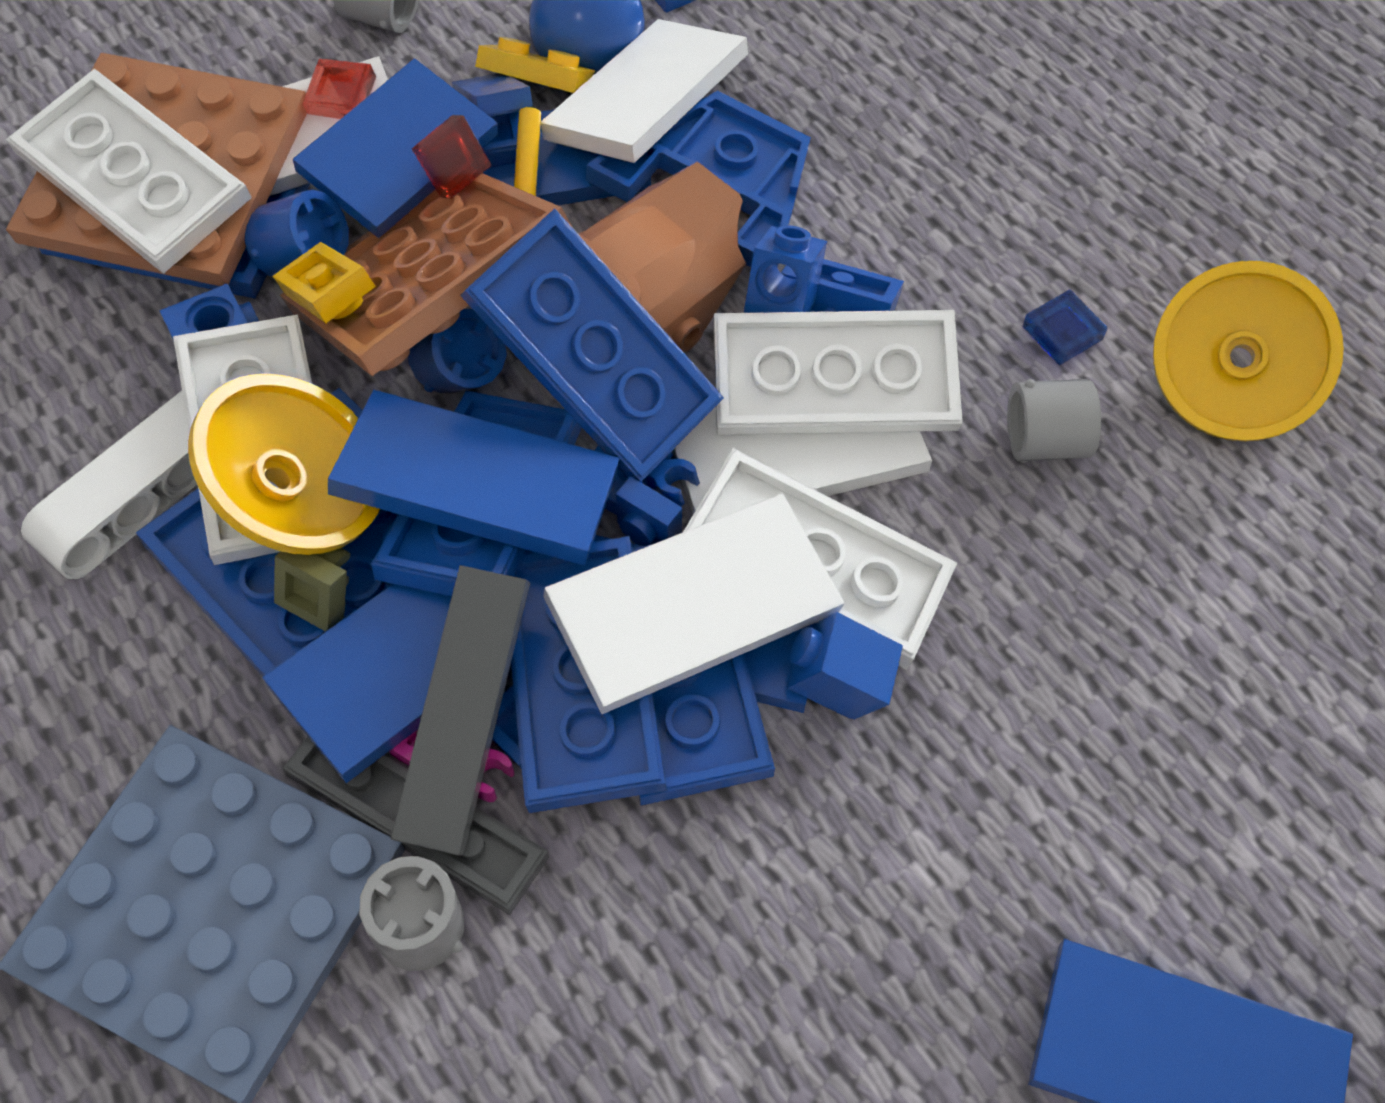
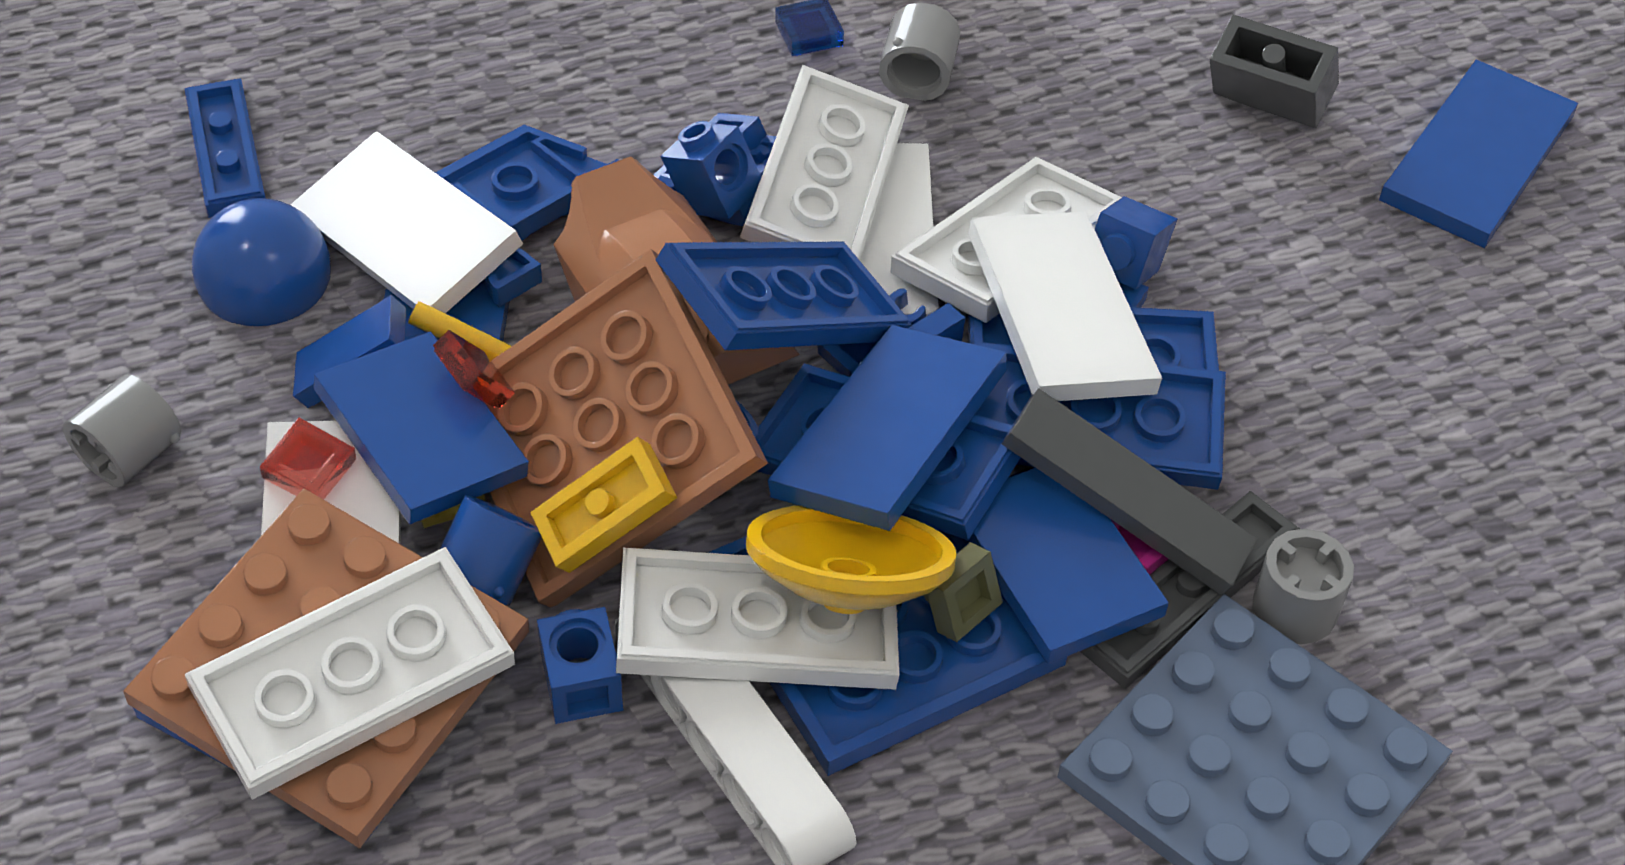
camera: 75 degrees left, 10 degrees down
(513, 59) = (300, 328): yellow plate -> none
(1184, 777) = (1275, 70): none -> dark grey brick

